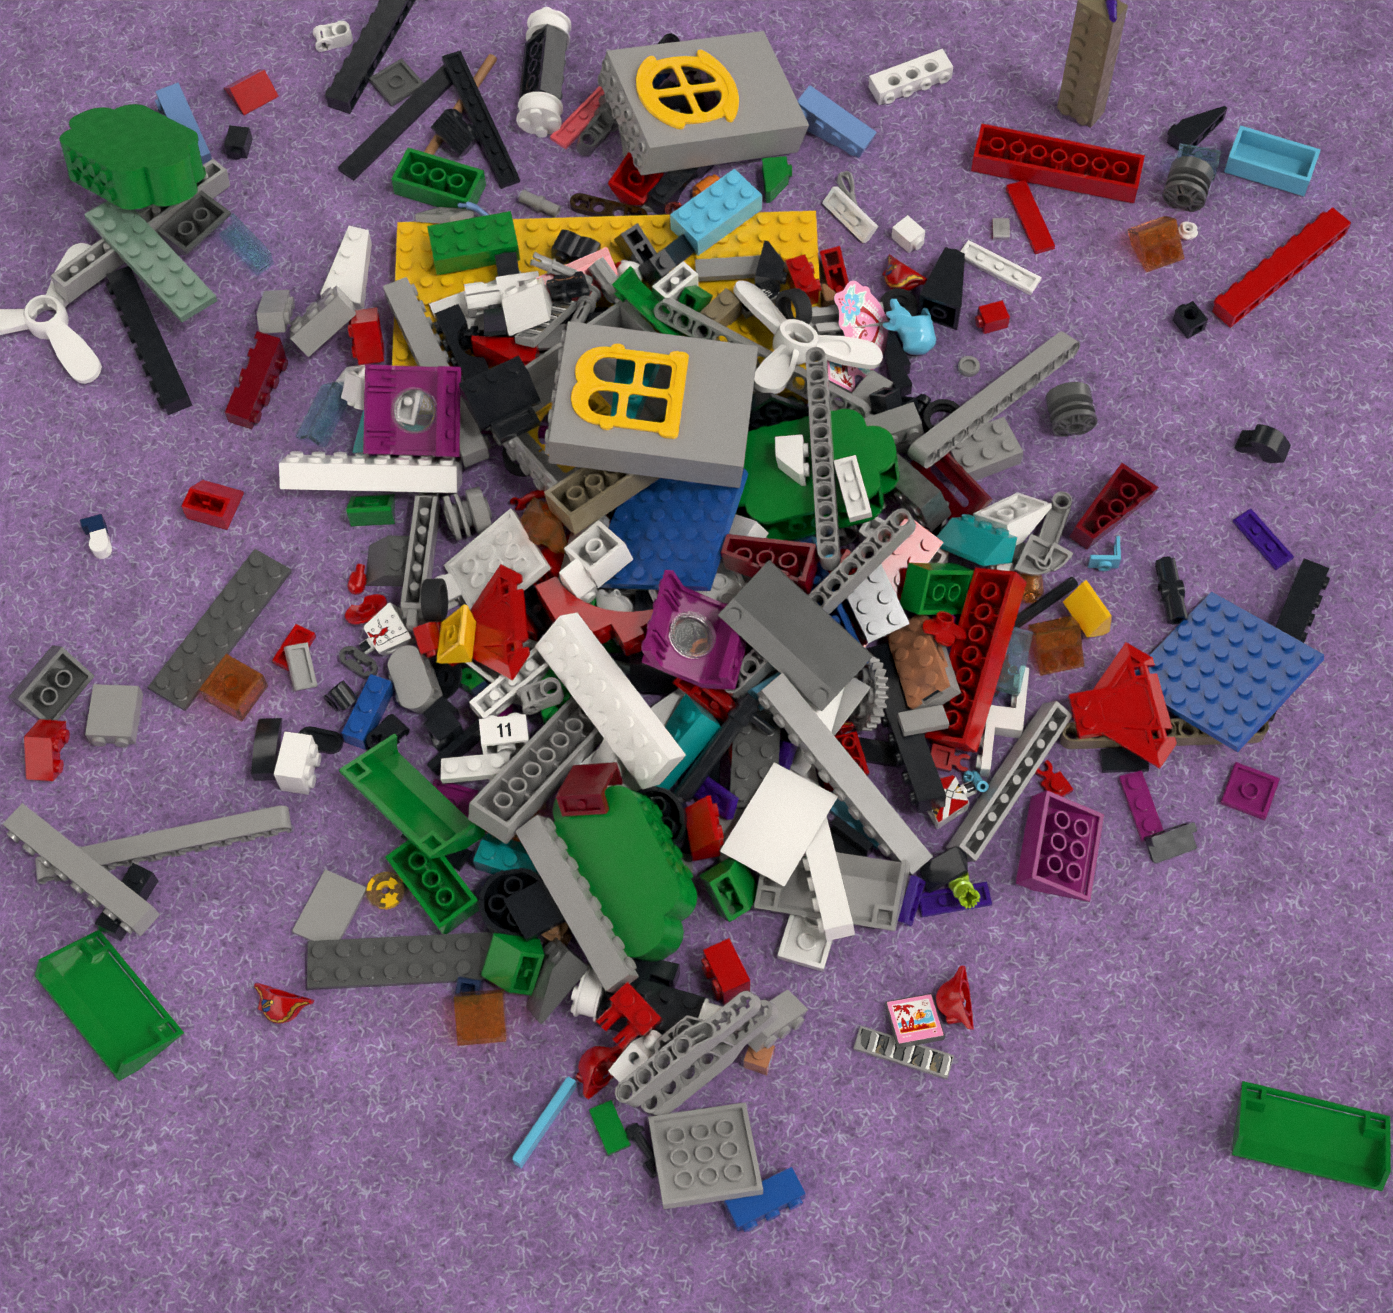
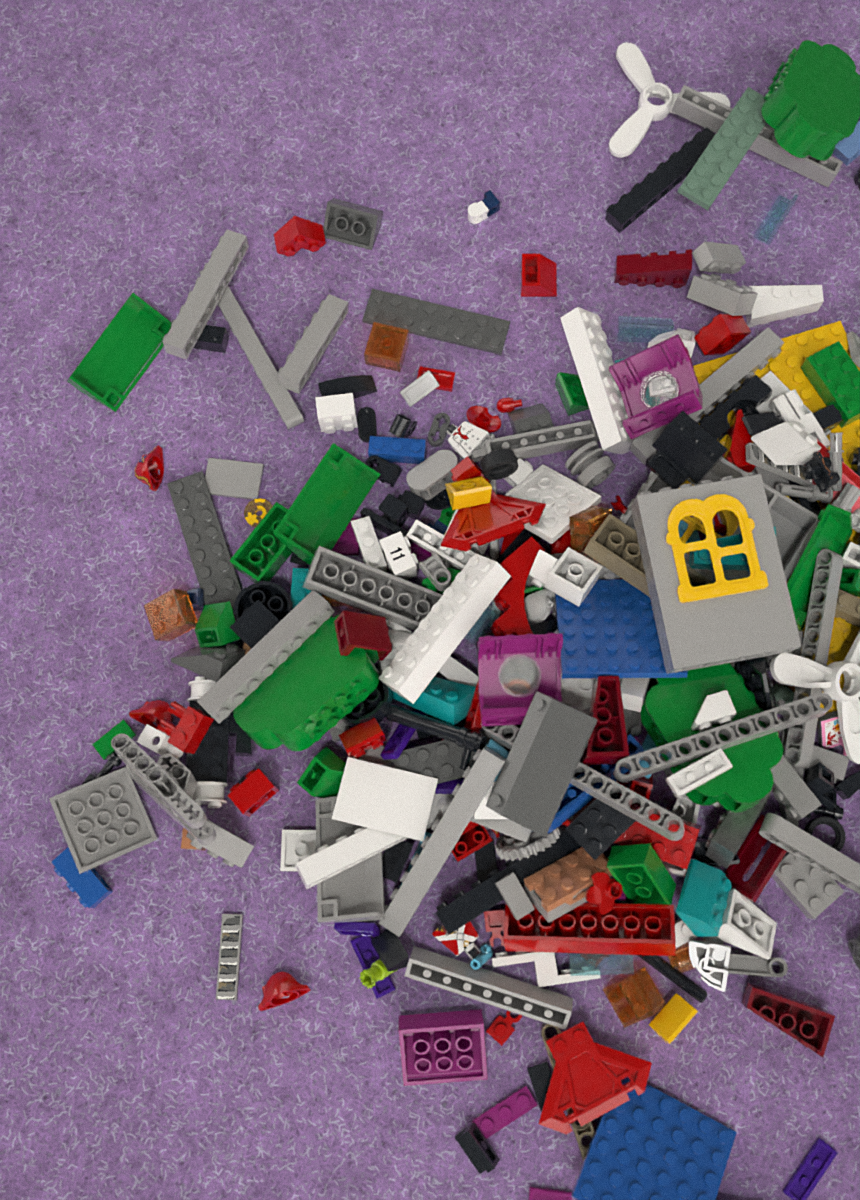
camera: 75 degrees right, 10 degrees up
(114, 715) = (341, 273): light grey brick -> none
(193, 223) = (777, 170): dark grey slope -> none
(196, 767) = (313, 344): none -> light grey brick
(544, 1122) = (105, 689): medium azure tile -> none
(914, 1020) = (256, 958): tile -> none
(1107, 562) = (730, 1024): medium azure bracket -> none
(1171, 590) = (724, 1093): black piece -> none

